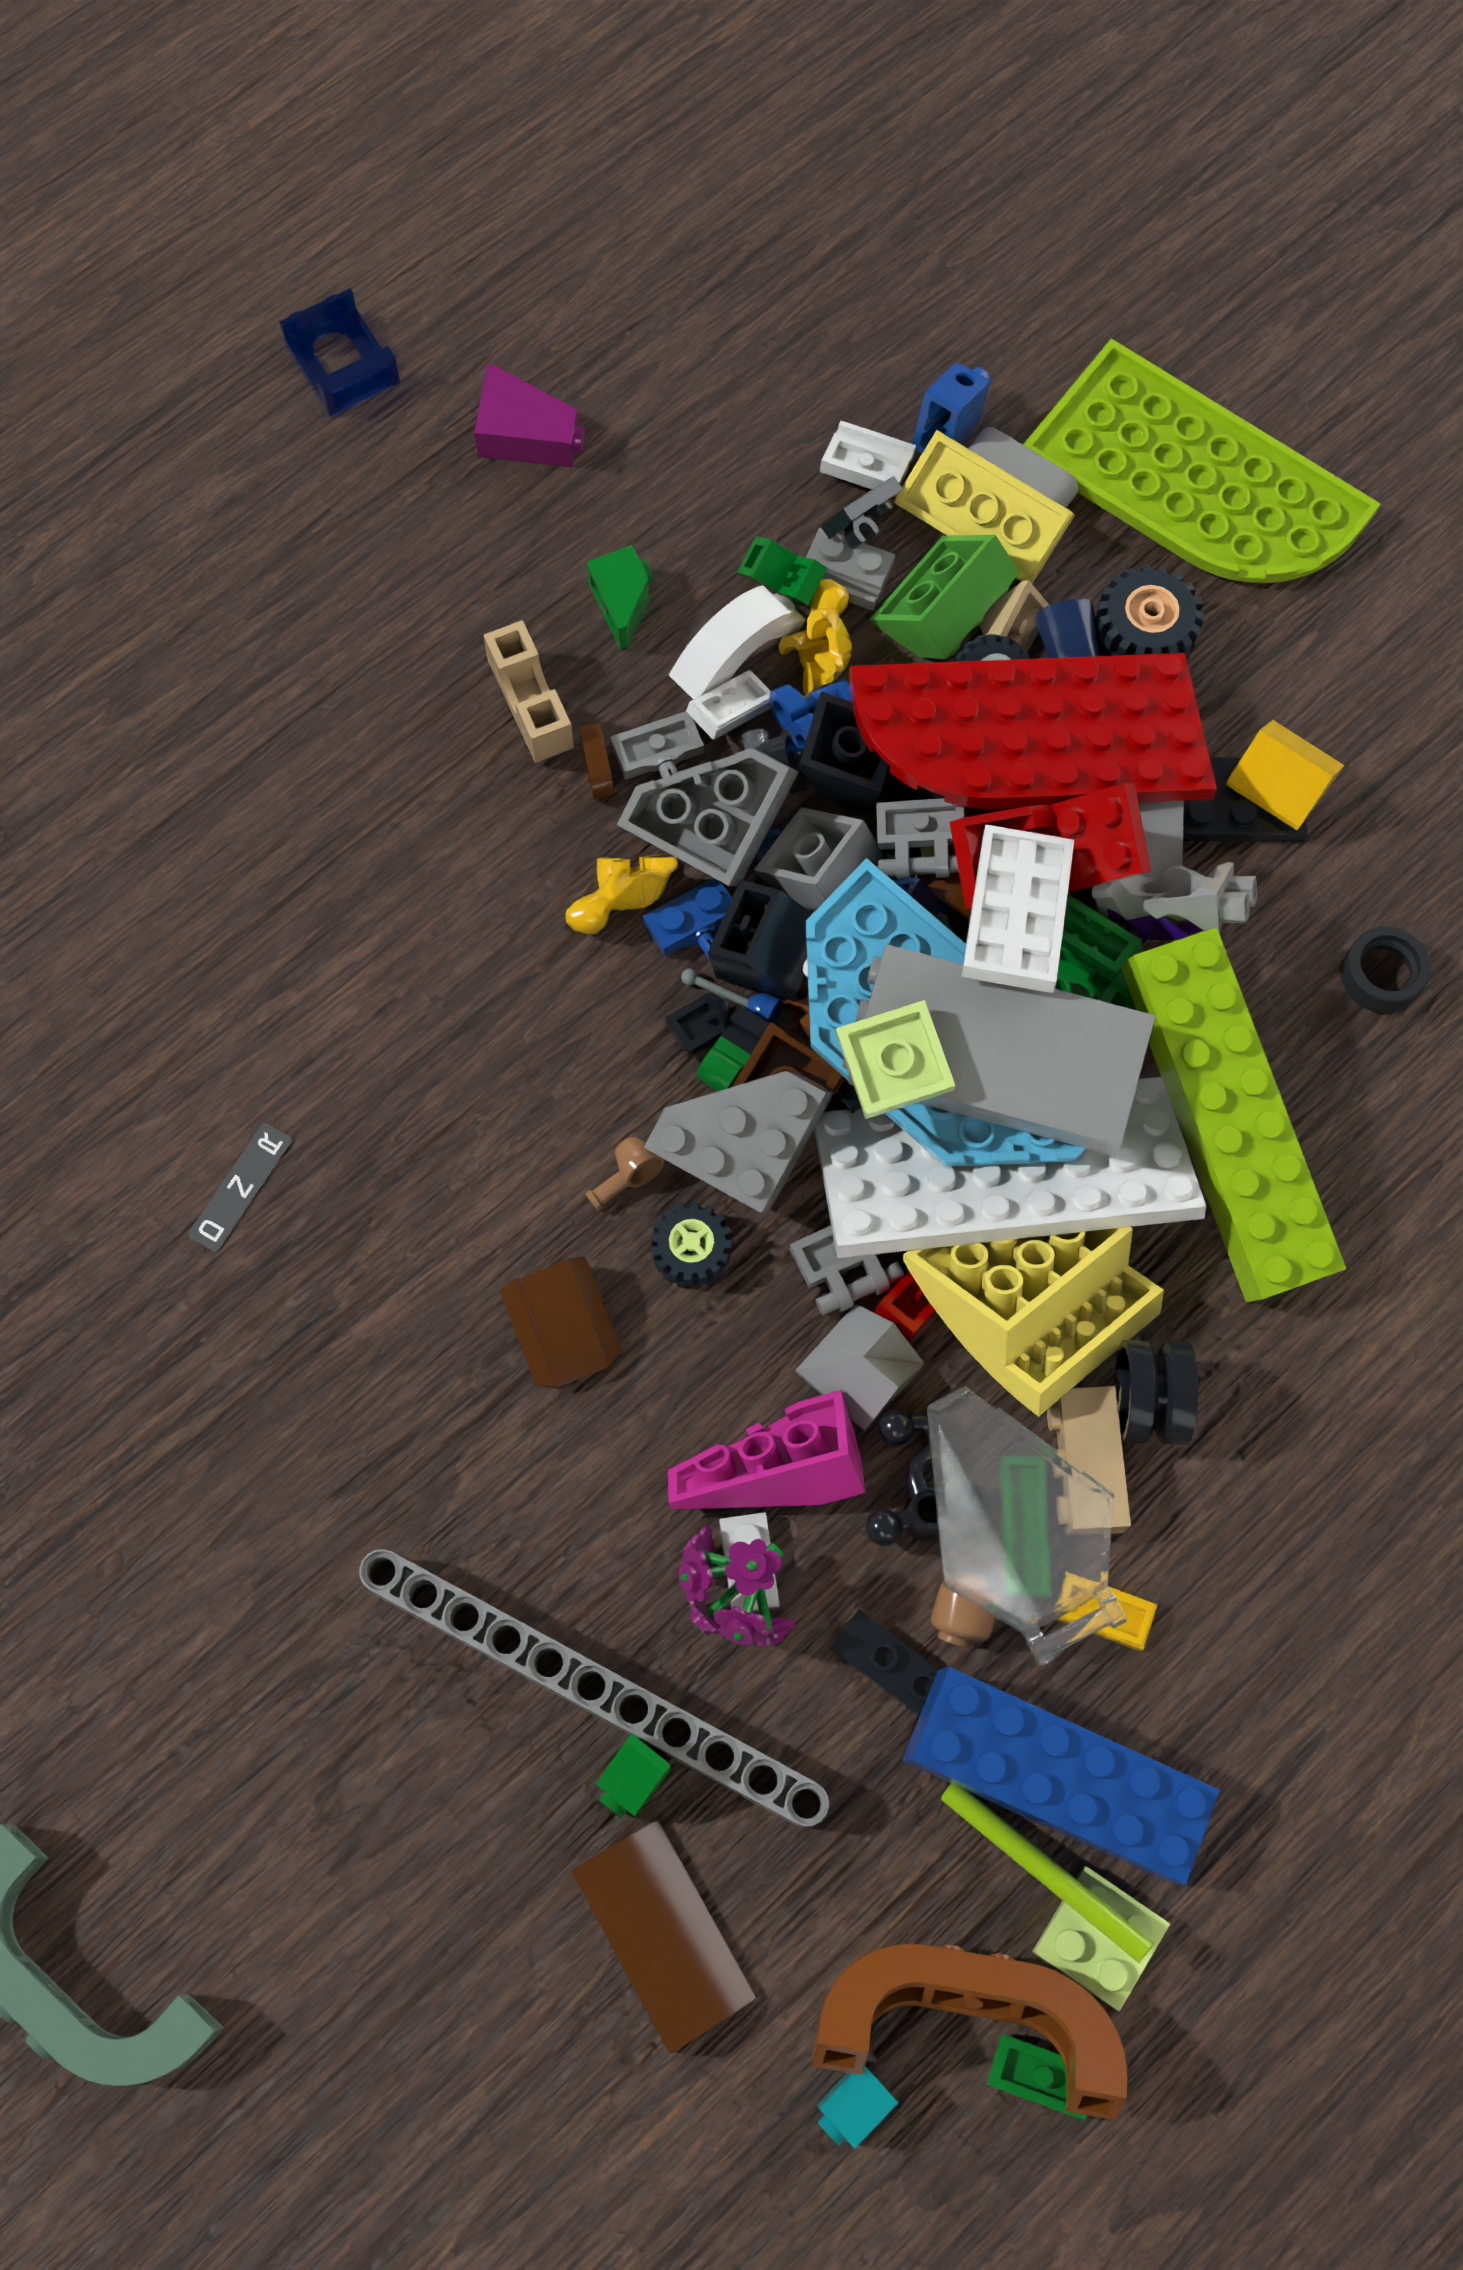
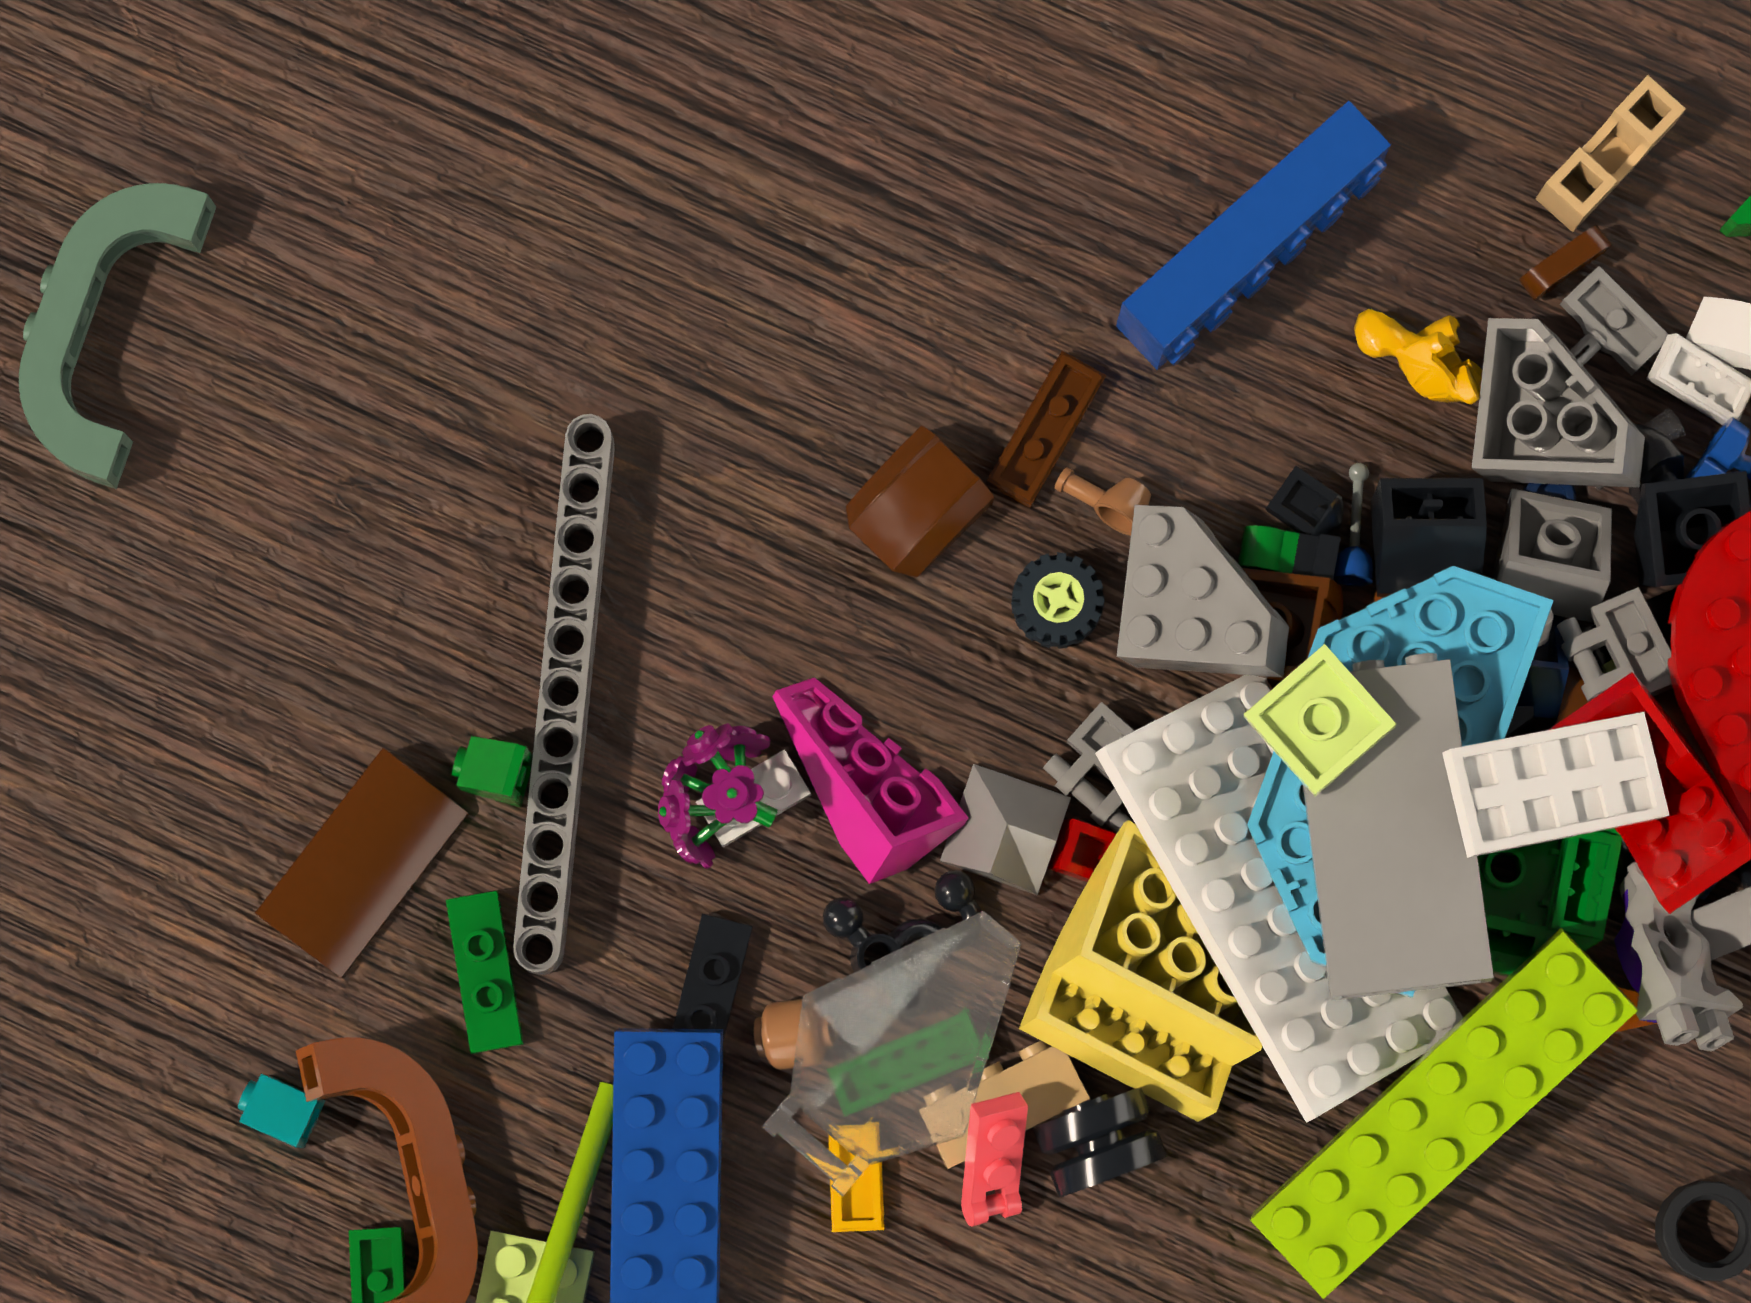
camera: 70 degrees right, 10 degrees up
(239, 1187) = (924, 114): dark grey sticker -> none
(471, 969) = (1253, 235): none -> blue brick
(546, 1197) = (1045, 429): none -> reddish brown tile
(689, 918) = (1424, 442): blue plate -> none
(804, 1863) = (484, 972): none -> green plate
(1138, 1483) = (994, 1158): none -> coral plate

